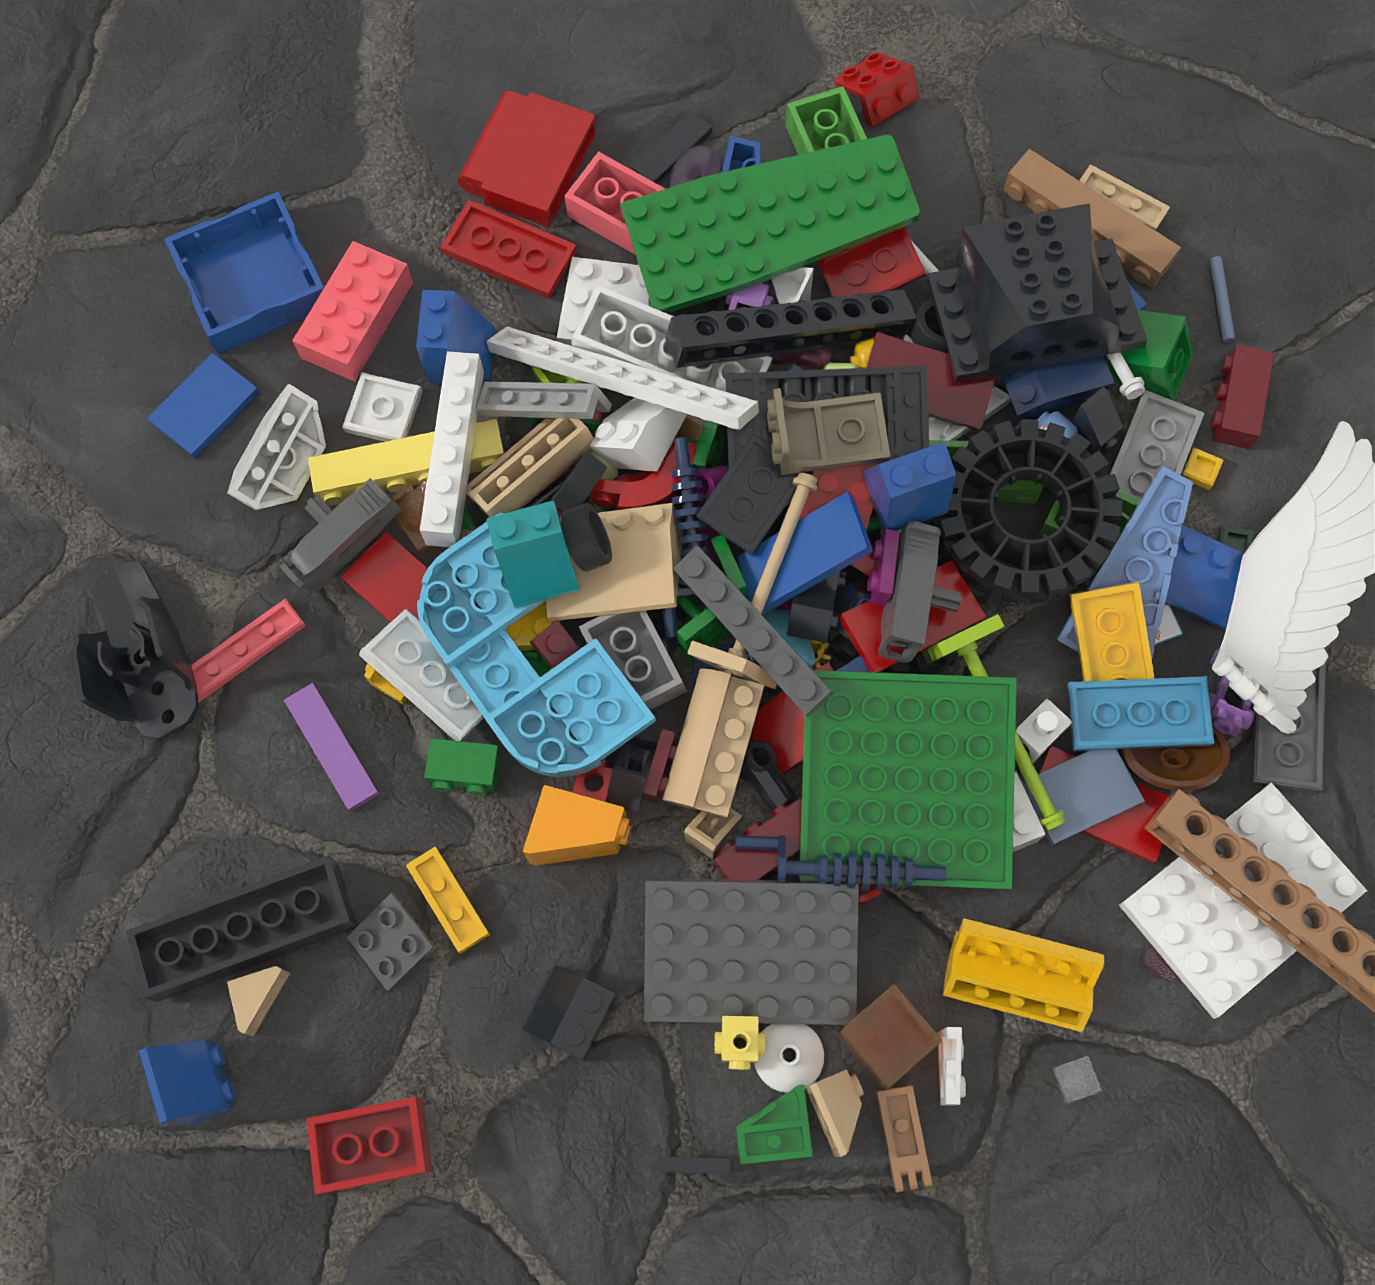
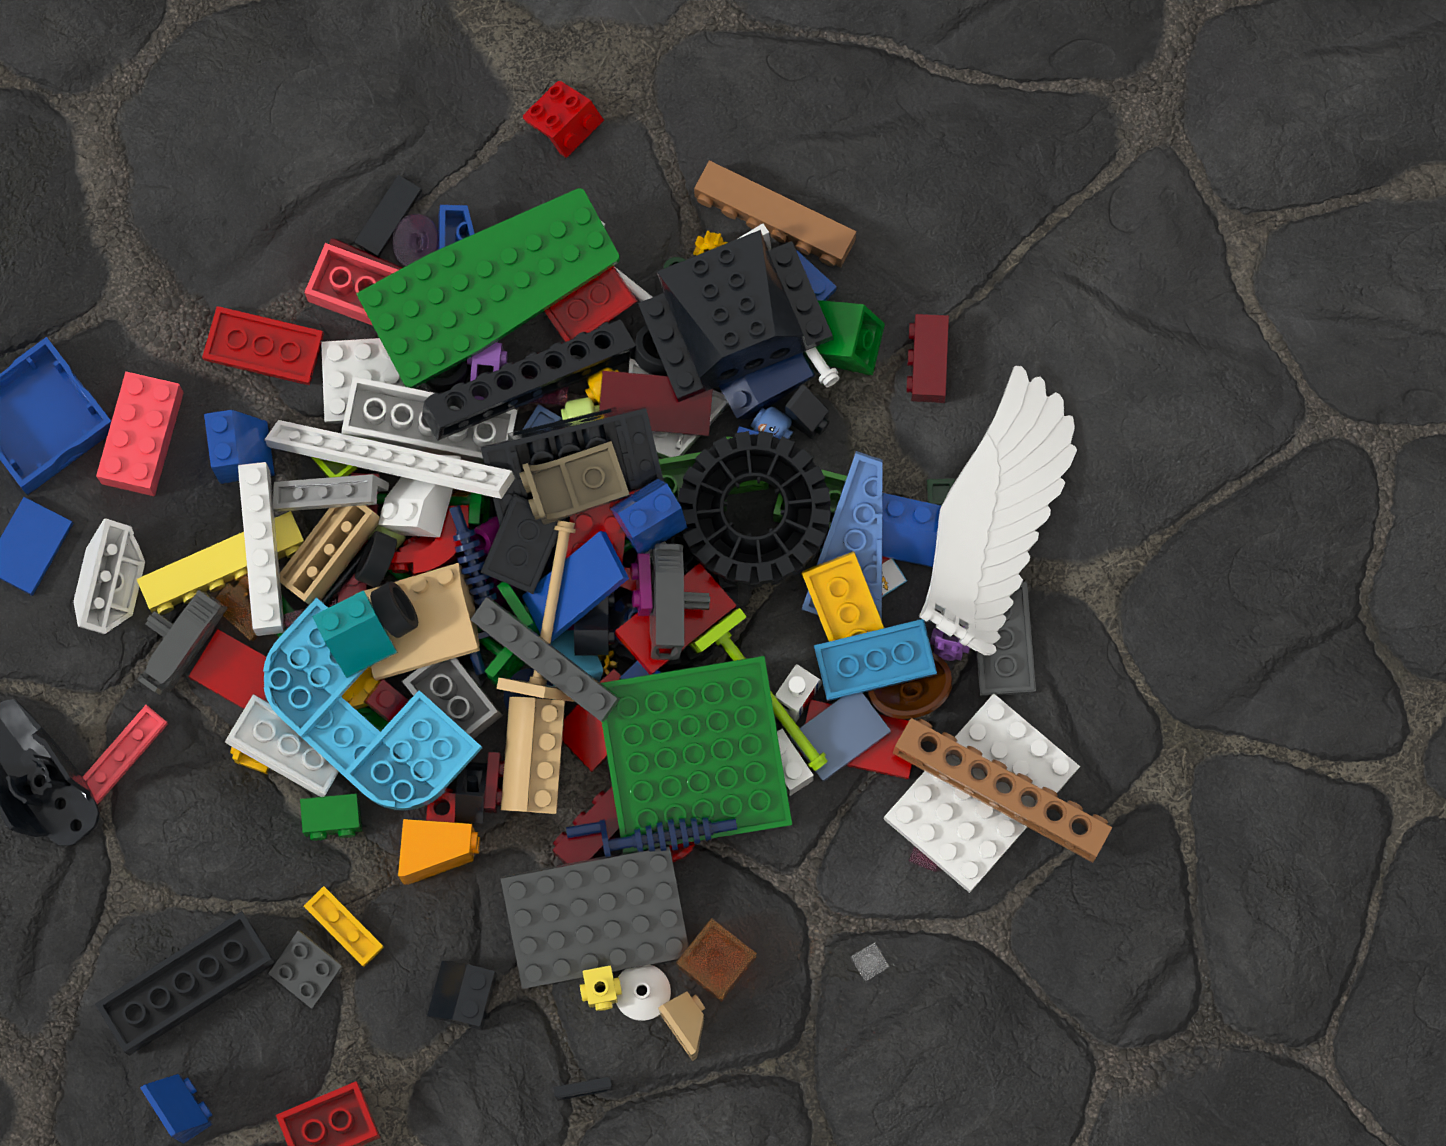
camera: 10 degrees left, 5 degrees up
(254, 996) = (207, 1033): tan slope -> none
(331, 747) = (216, 822): medium lavender tile -> none
(382, 408) = (186, 517): white tile -> none
(528, 156) = (260, 251): red piece -> none
(710, 831) = (545, 827): tan slope -> none
(765, 776) = (581, 772): black piece -> none
(776, 1131) = (642, 1050): green wing -> none
(791, 286) = (523, 340): white slope -> none
(823, 121) = (524, 176): bright green brick -> none
(903, 1137) = (741, 1033): medium nougat hinge -> none
(949, 1057) = (767, 961): white wing -> none
(1022, 975) = (813, 890): yellow brick -> none
(1126, 197) = (802, 189): tan plate -> none
(1156, 436) = (859, 420): light grey plate -> none
(1202, 468) = (904, 430): yellow tile -> none
(1222, 300) = (902, 267): sand blue bar -> none

